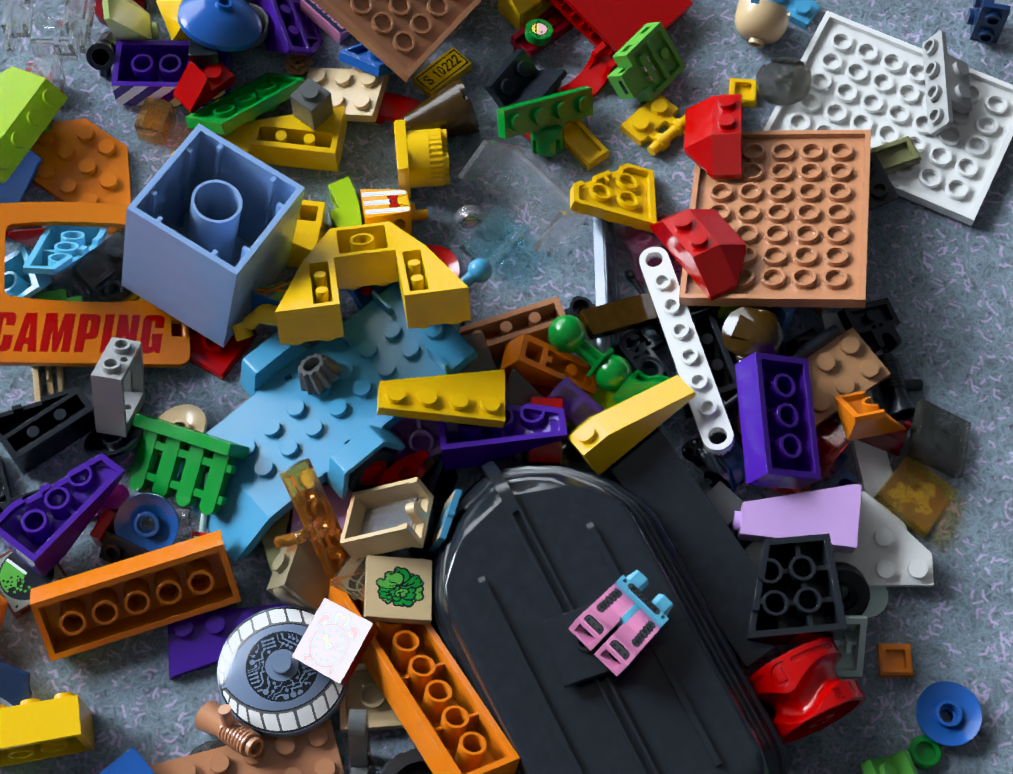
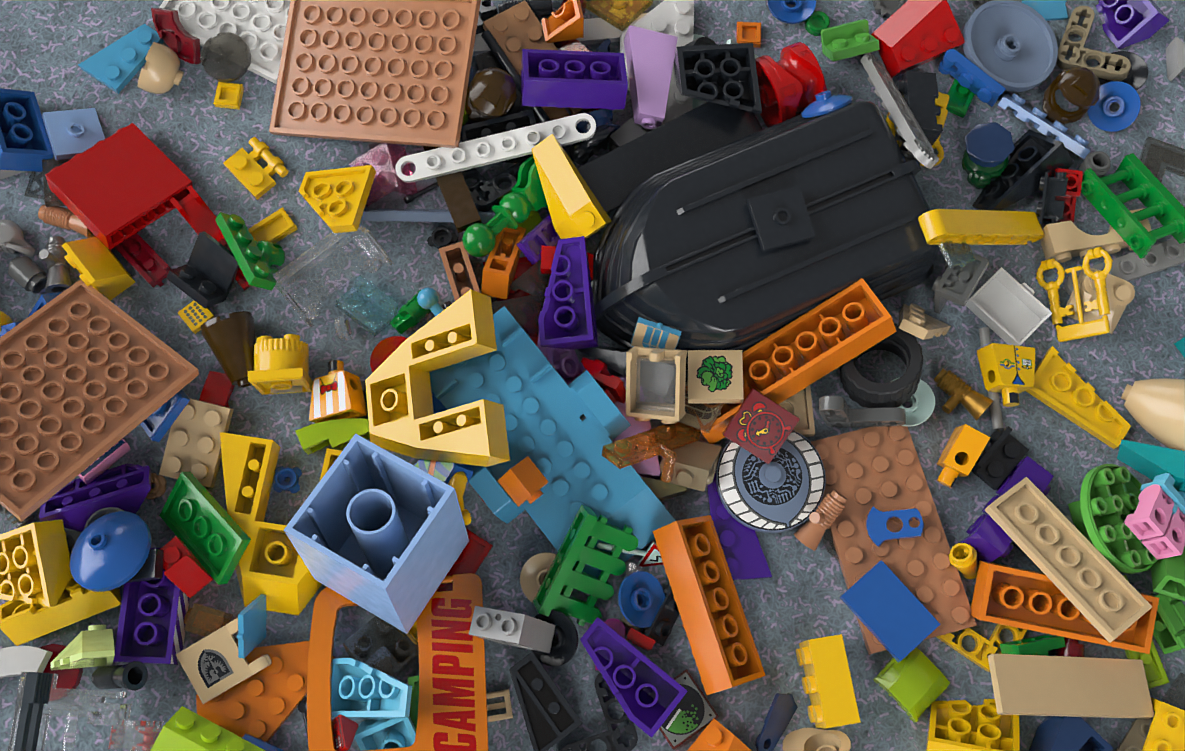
camera: 90 degrees left, 10 degrees up
(112, 128) = (214, 663): none -> tan flag
(142, 151) = (251, 626): none -> dark azure piece
(274, 384) = (523, 482): none -> orange brick
(305, 173) = (281, 474): none -> blue plate
(311, 104) = (221, 457): dark grey brick -> none
(317, 373) = (519, 443): dark grey piece -> none
(442, 72) = (176, 341): yellow tile -> none
(452, 398) = (550, 329): yellow wing -> none
(475, 85) = (195, 315): none -> yellow tile
(496, 290) = (409, 315): none -> green hinge
(538, 32) = (148, 258): green tile -> none
(631, 612) = (772, 184): hips -> none
(646, 64) = (197, 166): bright green piece -> none
(704, 248) = (406, 123): red wedge -> none
(716, 135) = (280, 110): red wedge -> none
(765, 721) = (825, 104): none -> blue dish
(814, 26) = (176, 37): none -> dark red tile

